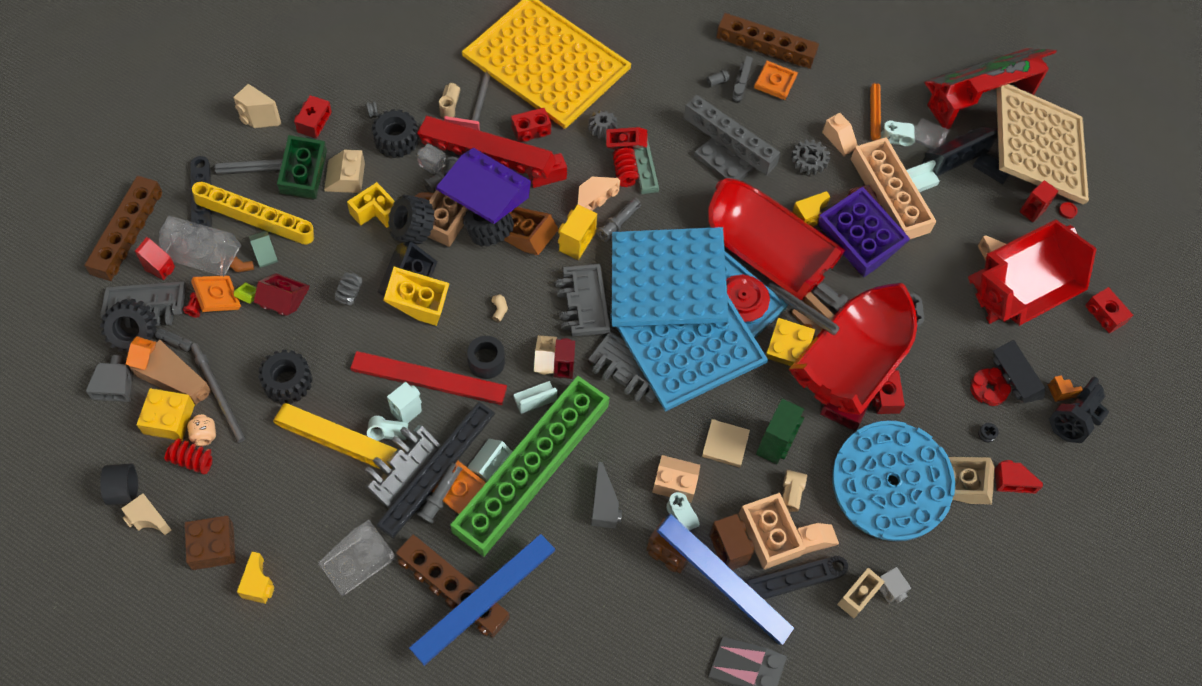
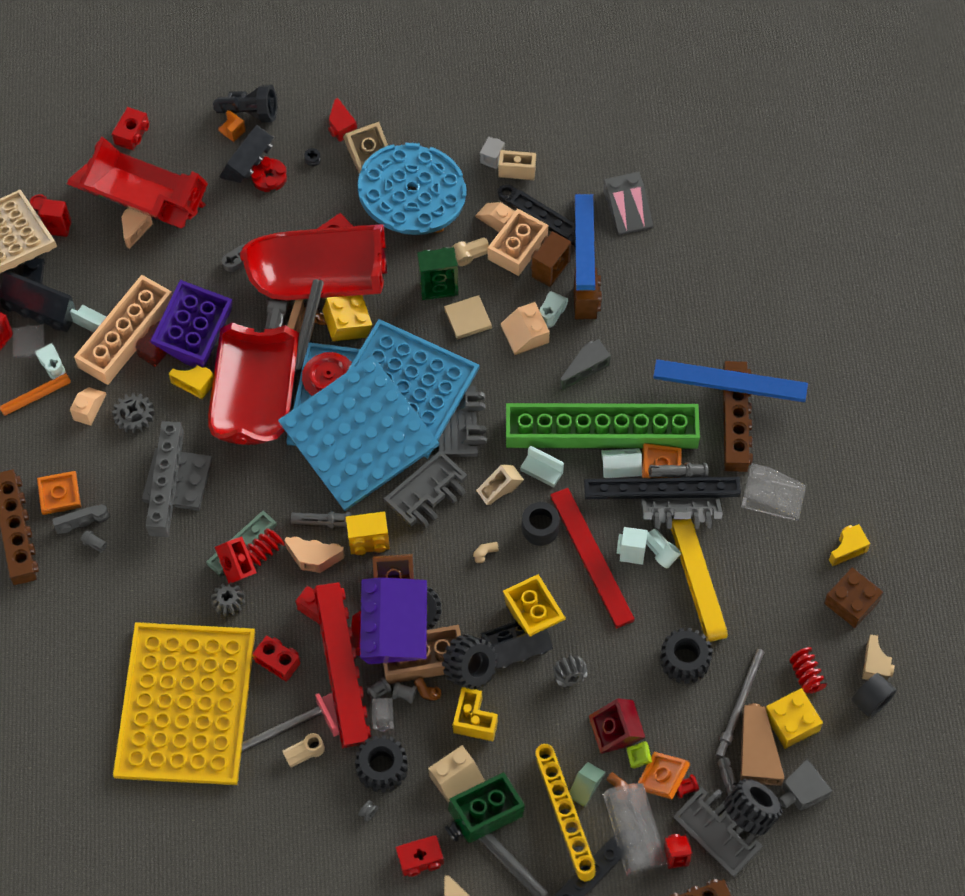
camera: 120 degrees left, 0 degrees up
(140, 352) = (767, 773): orange panel -> none
(201, 430) = (781, 681): light nougat head -> none
(564, 358) = (494, 457): dark red brick -> none

